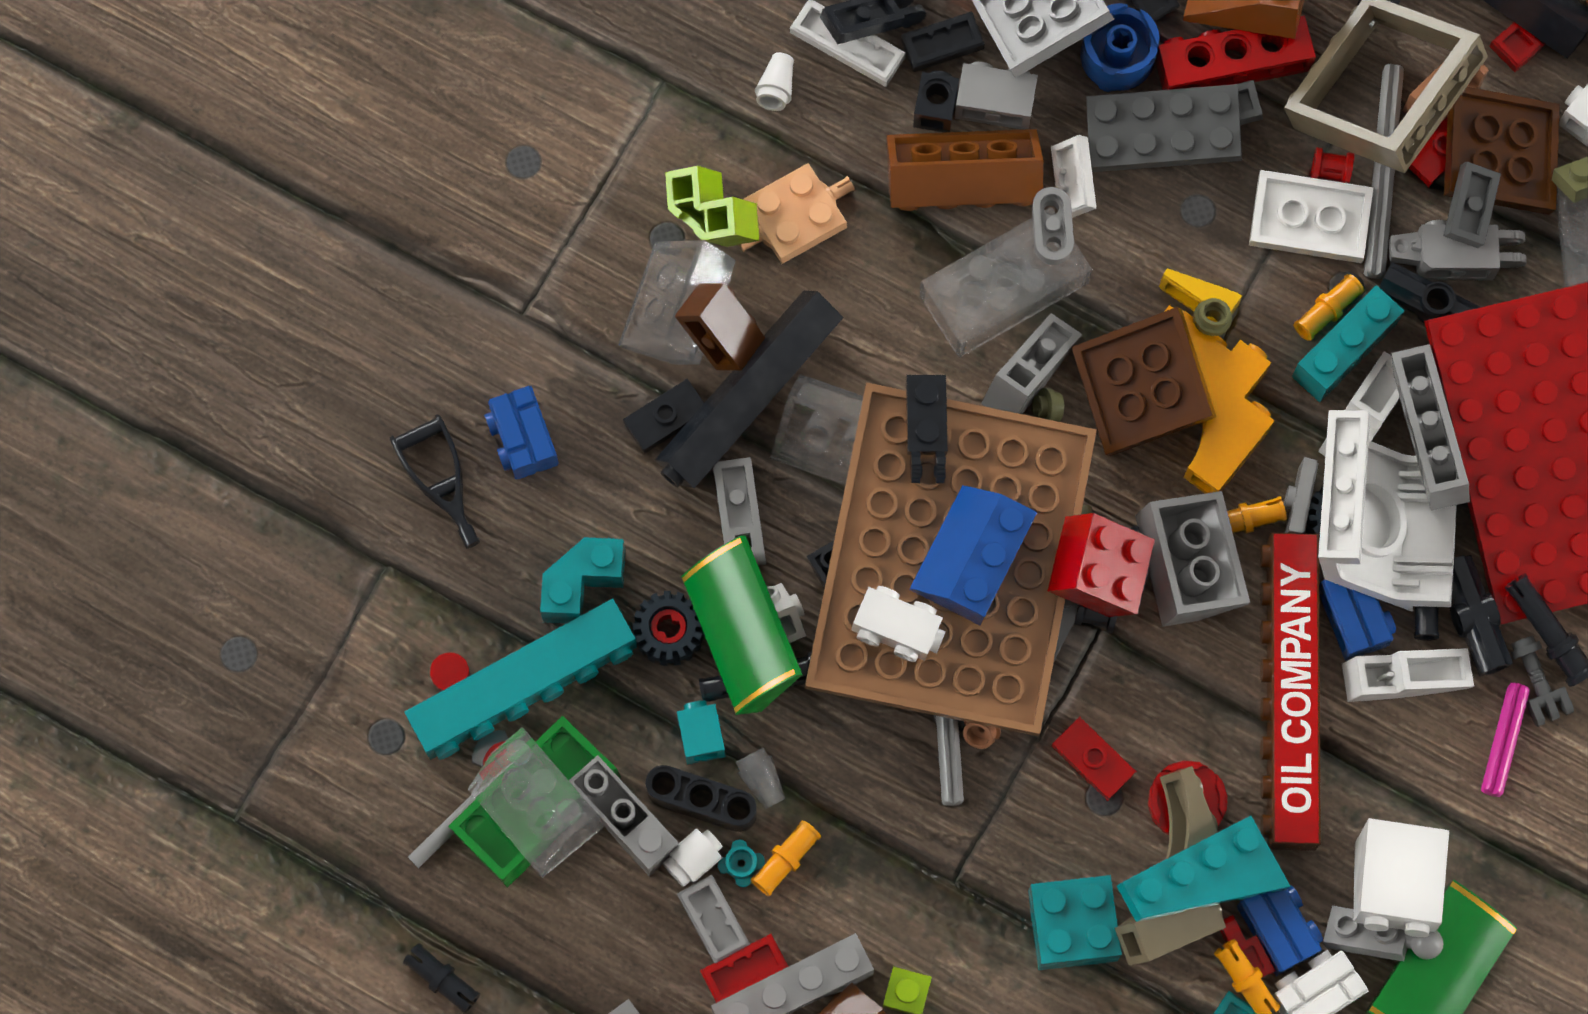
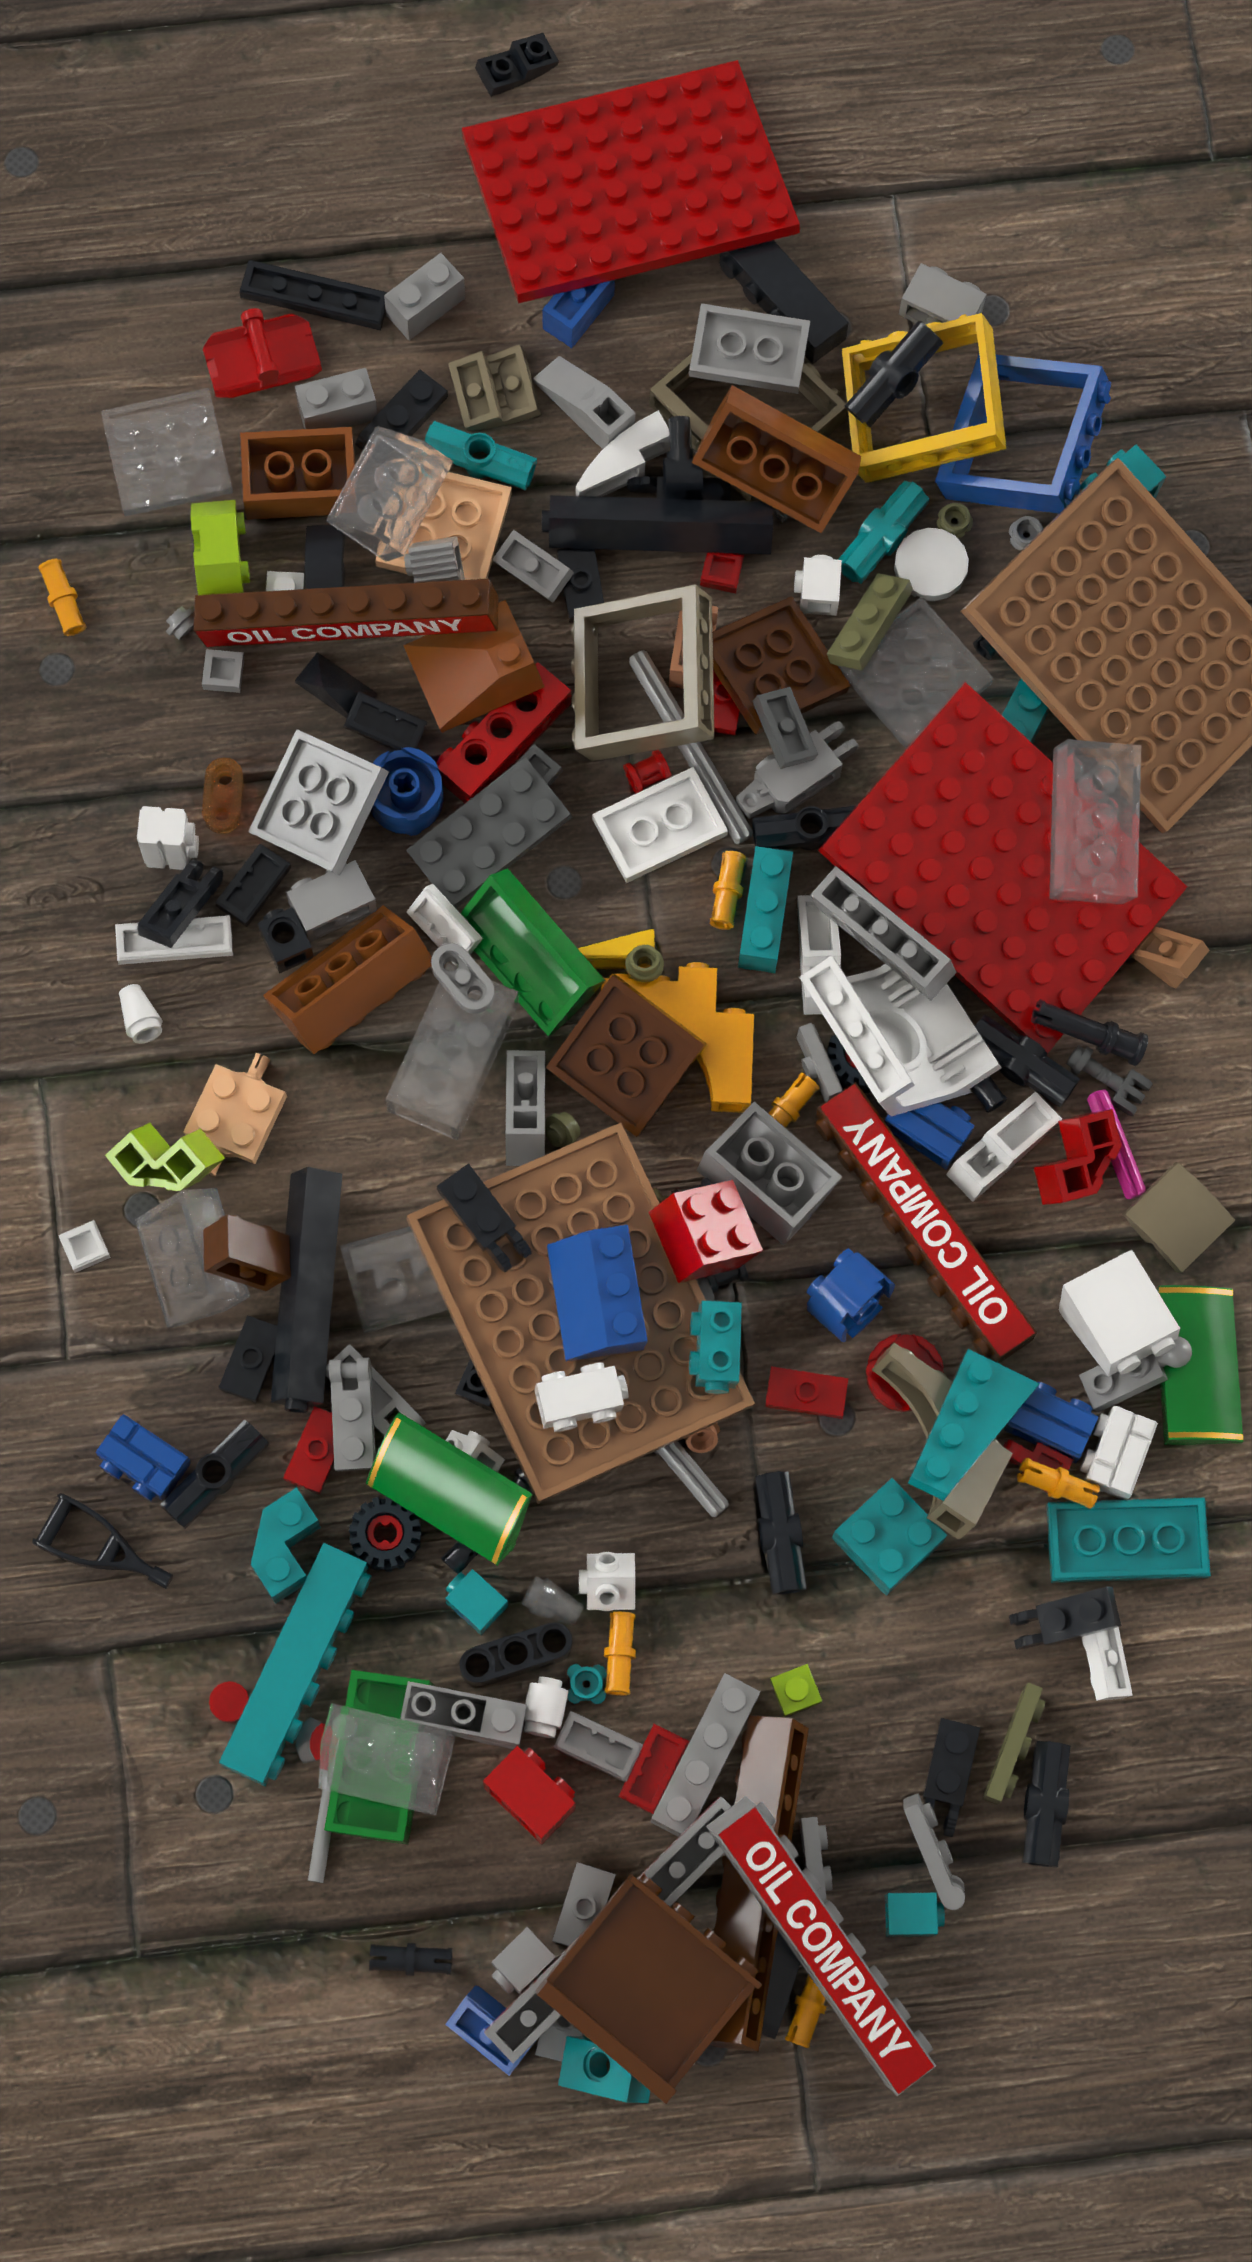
camera: 40 degrees left, 0 degrees up
(543, 489) = (234, 1455): none -> black piece
(600, 235) = (84, 1246): none -> white tile
(627, 915) = (530, 1793): none -> red brick
(664, 524) = (313, 1453): none -> red plate
(711, 513) = (352, 1415): none -> light grey plate
(818, 793) = (609, 1581): none -> white brick
(987, 856) = (780, 1533): none -> black piece
(1041, 664) = (718, 1346): none -> teal brick
(1126, 245) = (530, 952): none -> green slope
(1184, 703) = (848, 1295): none -> blue brick
(1480, 724) = (1090, 1146): none -> red brick
(1514, 836) = (1178, 1217): none -> dark tan slope

